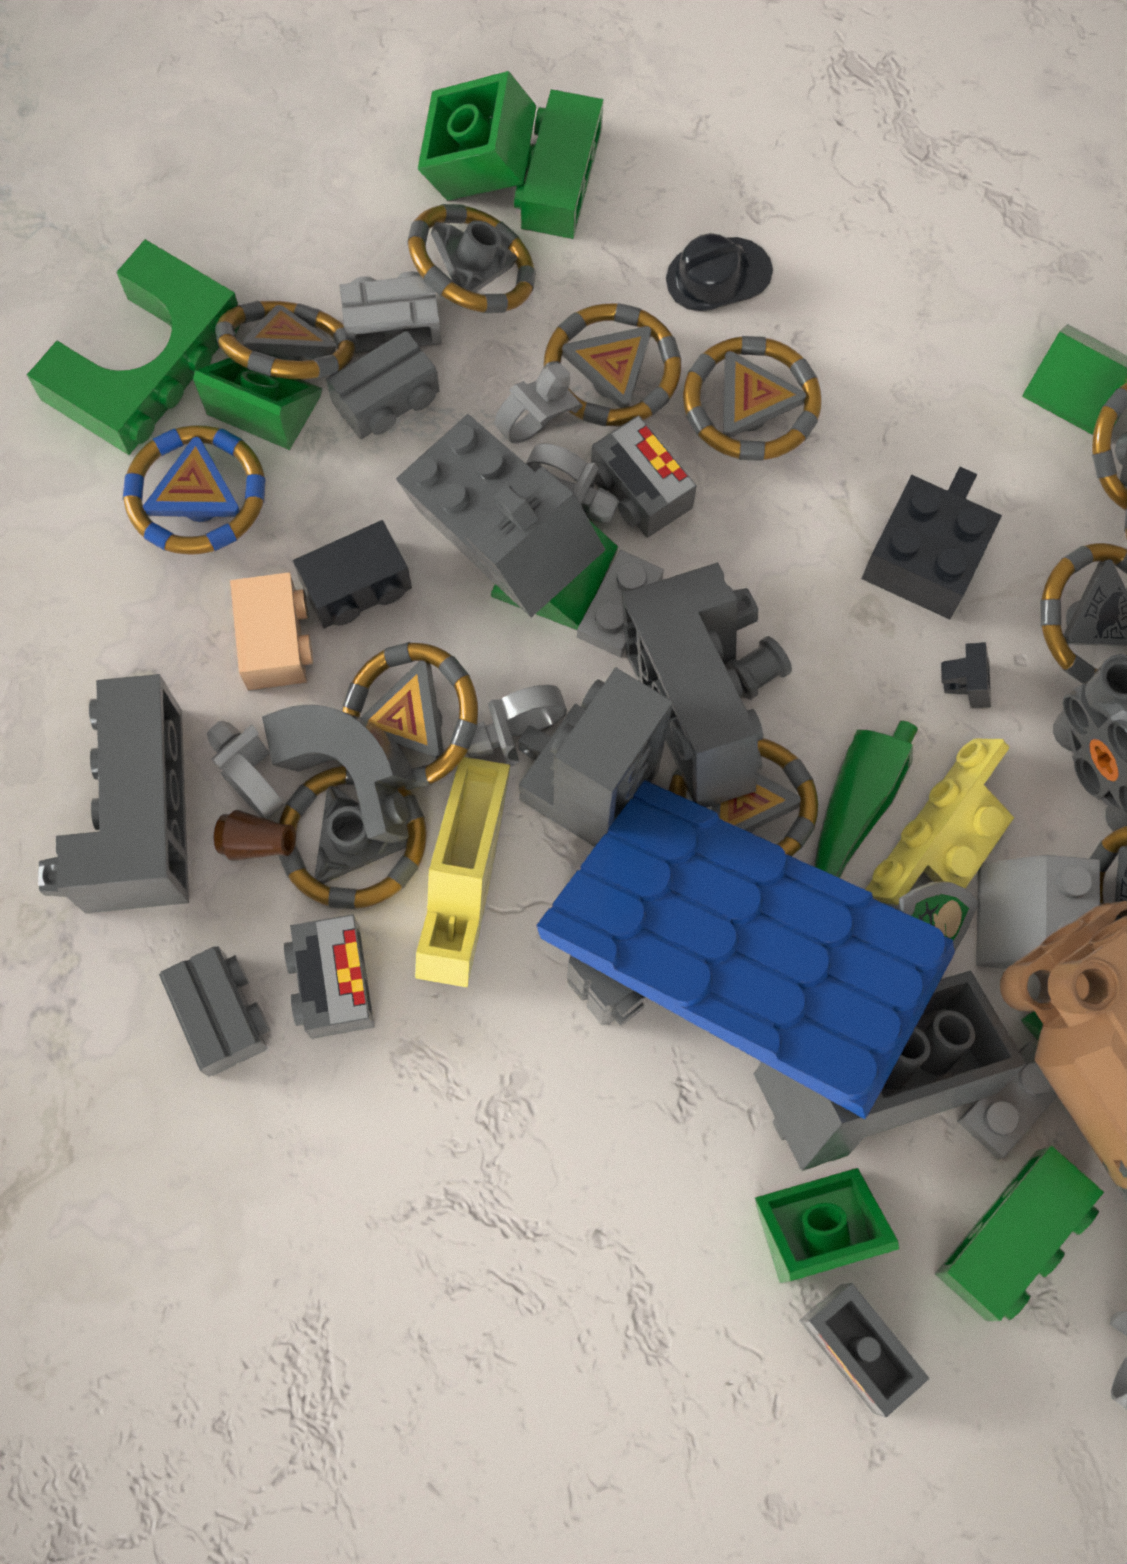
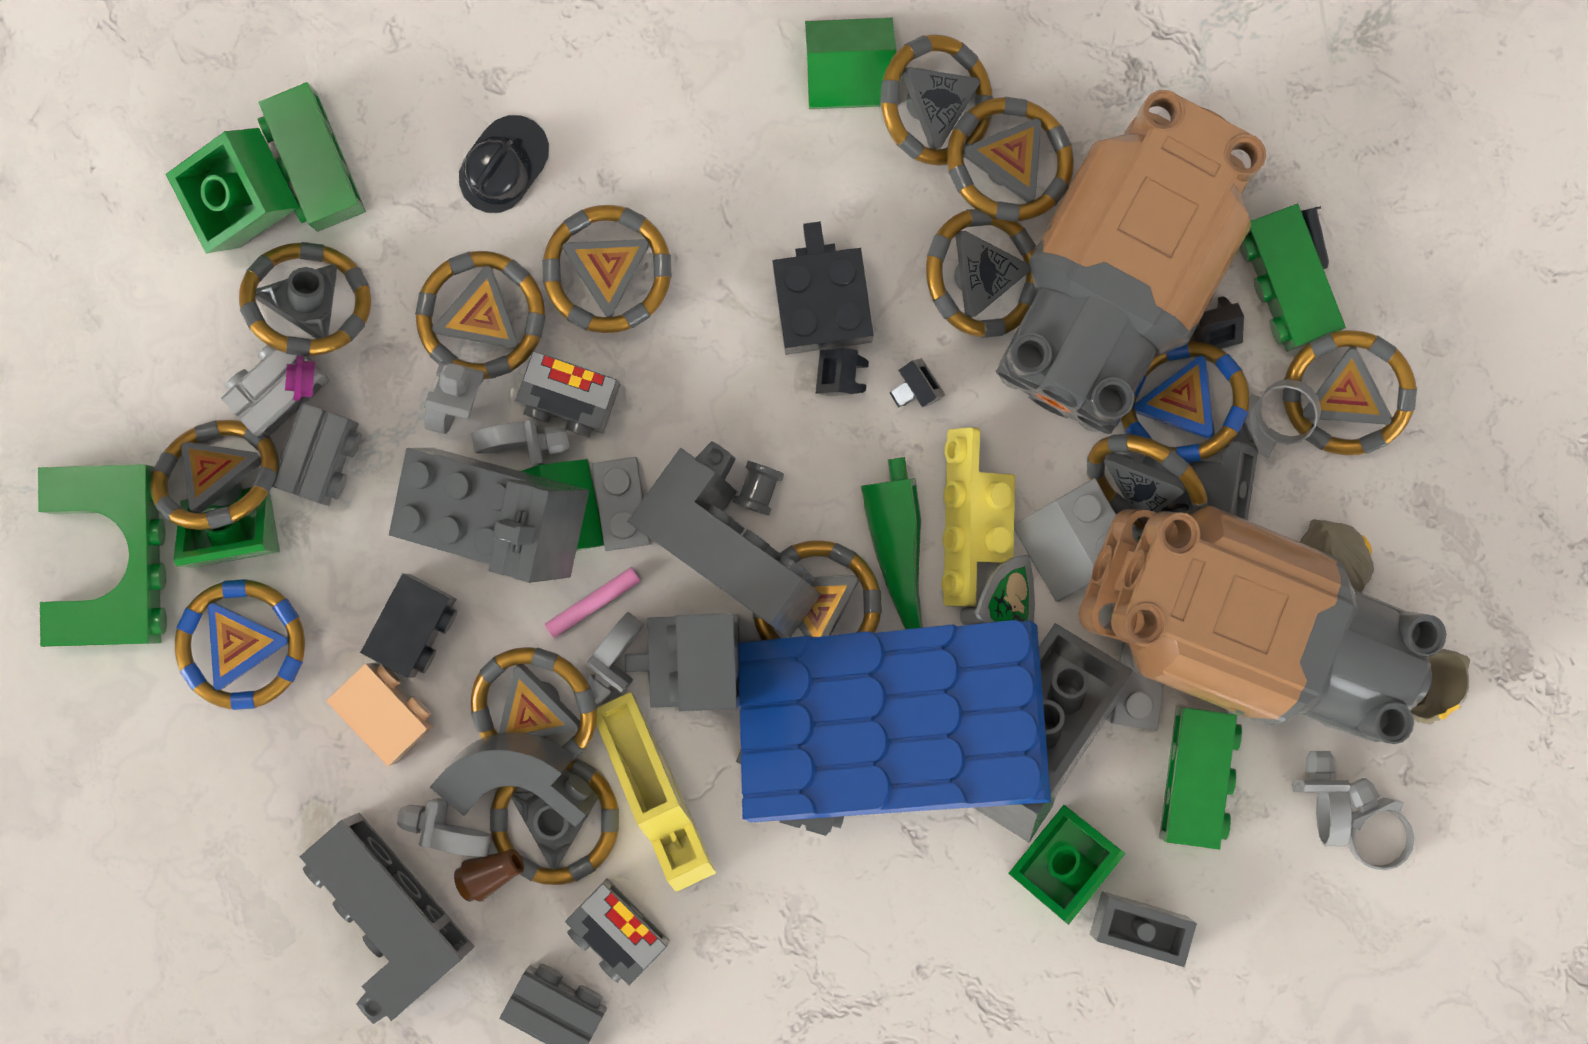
camera: 30 degrees left, 15 degrees up
(420, 302) = (300, 378): none -> magenta plate
(532, 669) = (592, 602): none -> bright pink piece
(903, 616) = (838, 372): none -> black tile

